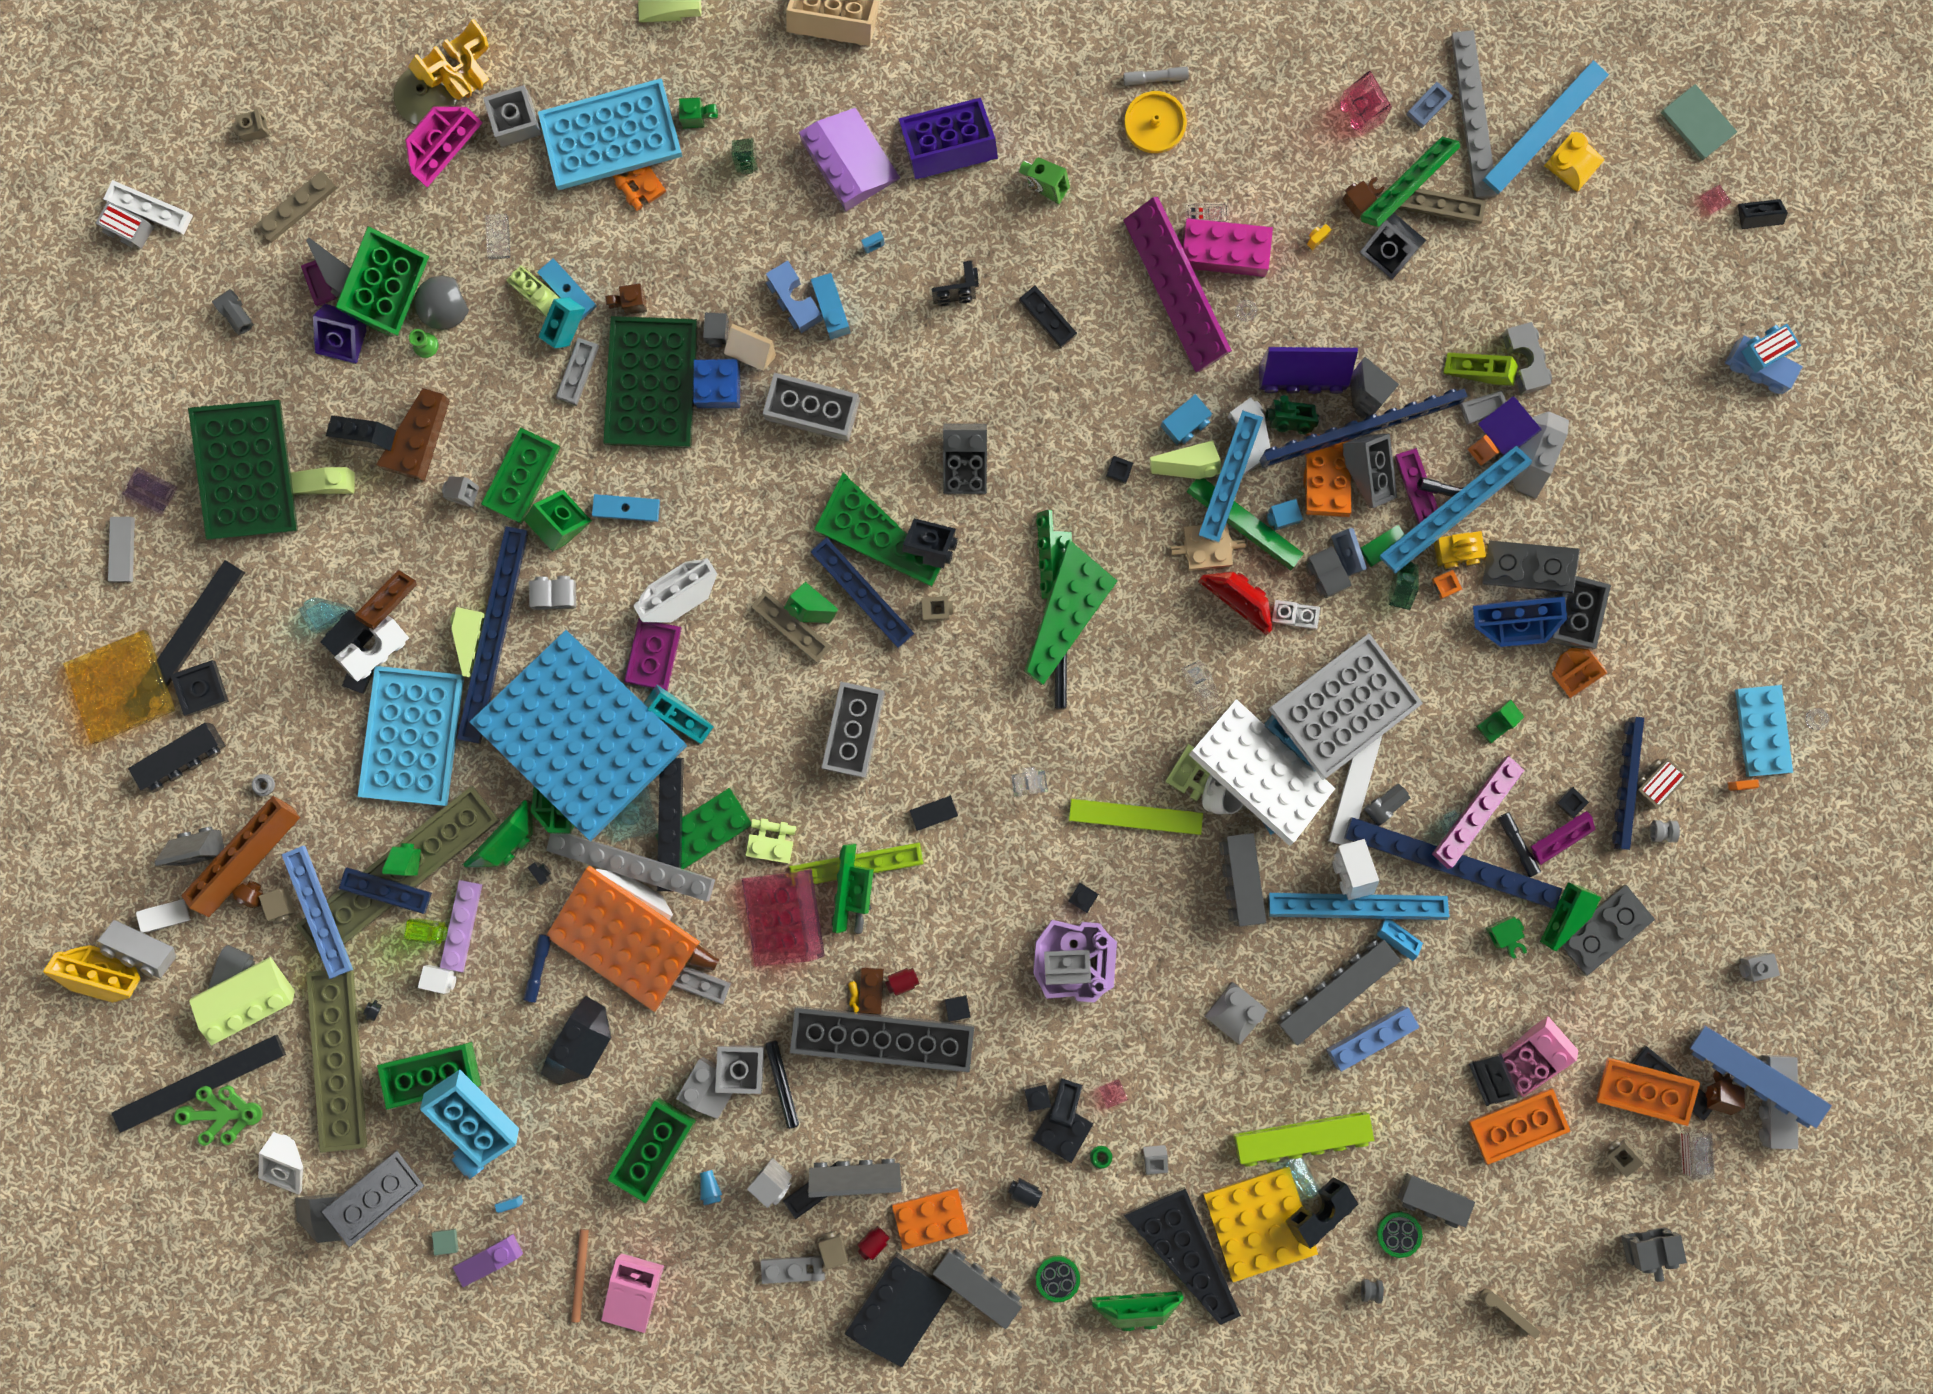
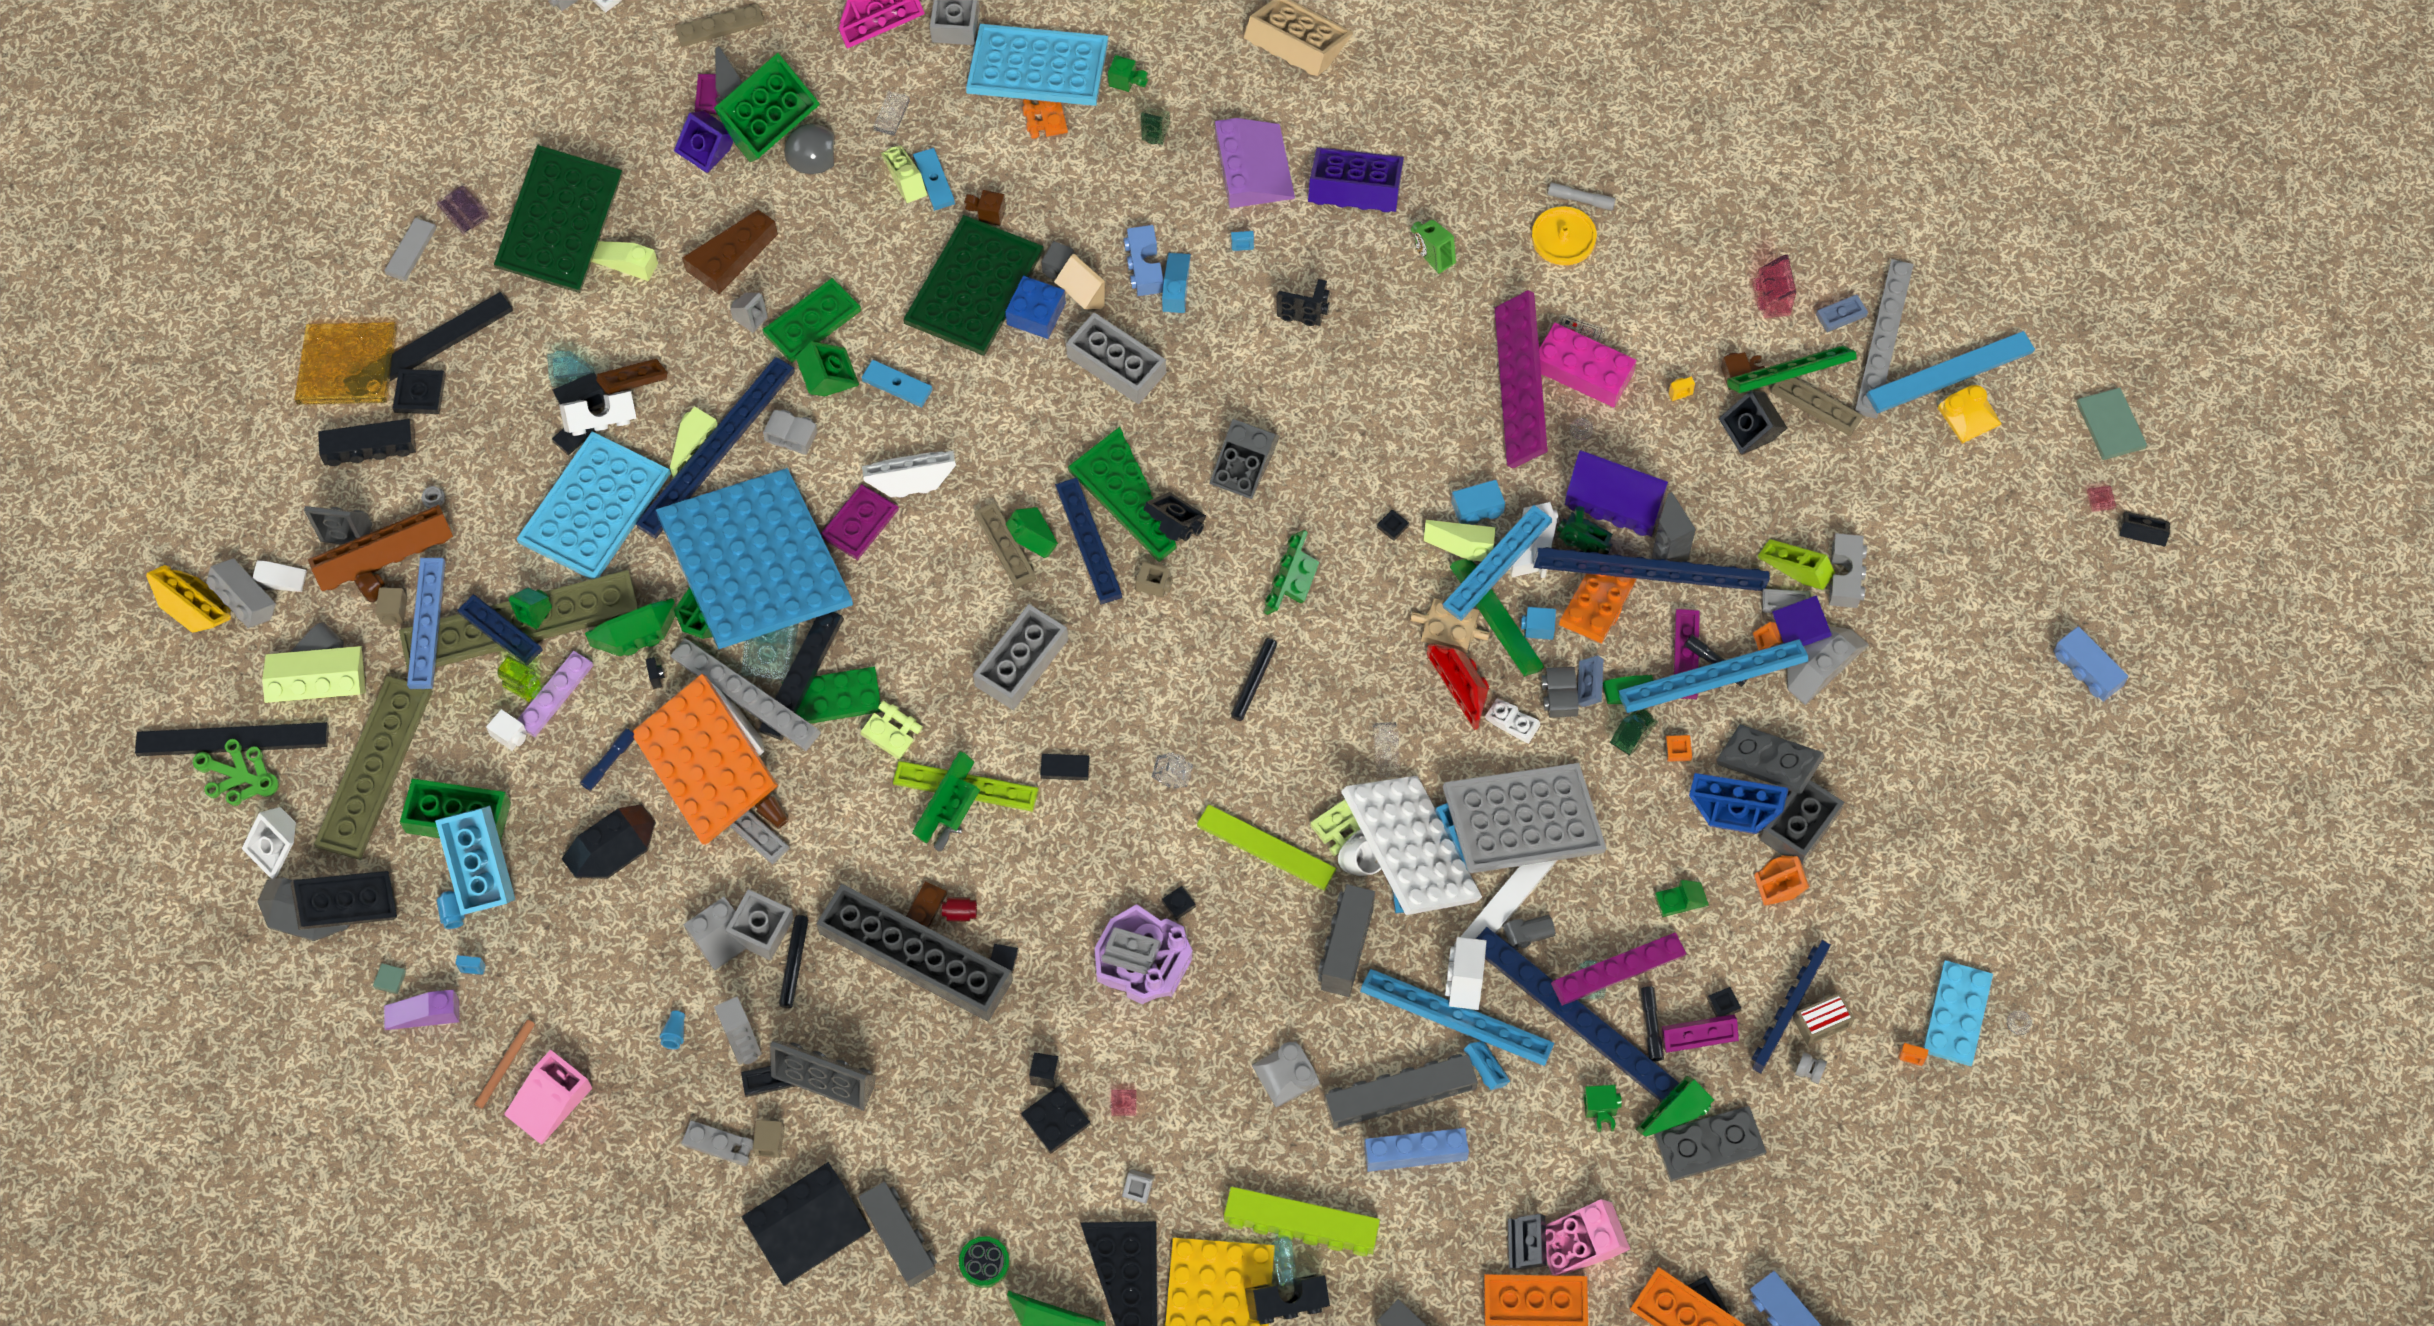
camera: 20 degrees right, 20 degrees down
(232, 310) = (617, 86): dark grey piece -> none
(361, 432) = (682, 226): black brick -> none
(372, 1010) = (430, 735): black plate -> none
(423, 343) = (778, 179): bright green piece -> none
(561, 322) = (914, 201): teal brick -> none
(577, 371) = (909, 252): light grey tile -> none
(652, 1150) = (636, 967): green brick -> none
(678, 714) = (858, 582): teal slope -> none
(783, 917) = (870, 802): clear pink slope -> none
(854, 999) = (907, 903): yellow piece -> none
(873, 1243) = (811, 1148): dark red brick -> none
(930, 1218) = (881, 1150): orange plate -> none
(1025, 1193) = (988, 1161): black brick -> none
(1047, 316) = (1383, 365): black tile -> none
(1065, 1103) = (1070, 1088): black tile -> none
(1071, 603) = (1291, 620): green wing -> none
(1108, 1157) = (1083, 1151): green plate -> none
(1372, 467) = (1645, 609): dark grey slope -> none
(1460, 549) = (1705, 719): yellow brick -> none
(1759, 967) = (1859, 1241): light grey brick -> none
(1770, 348) = (2098, 643): brick -> none

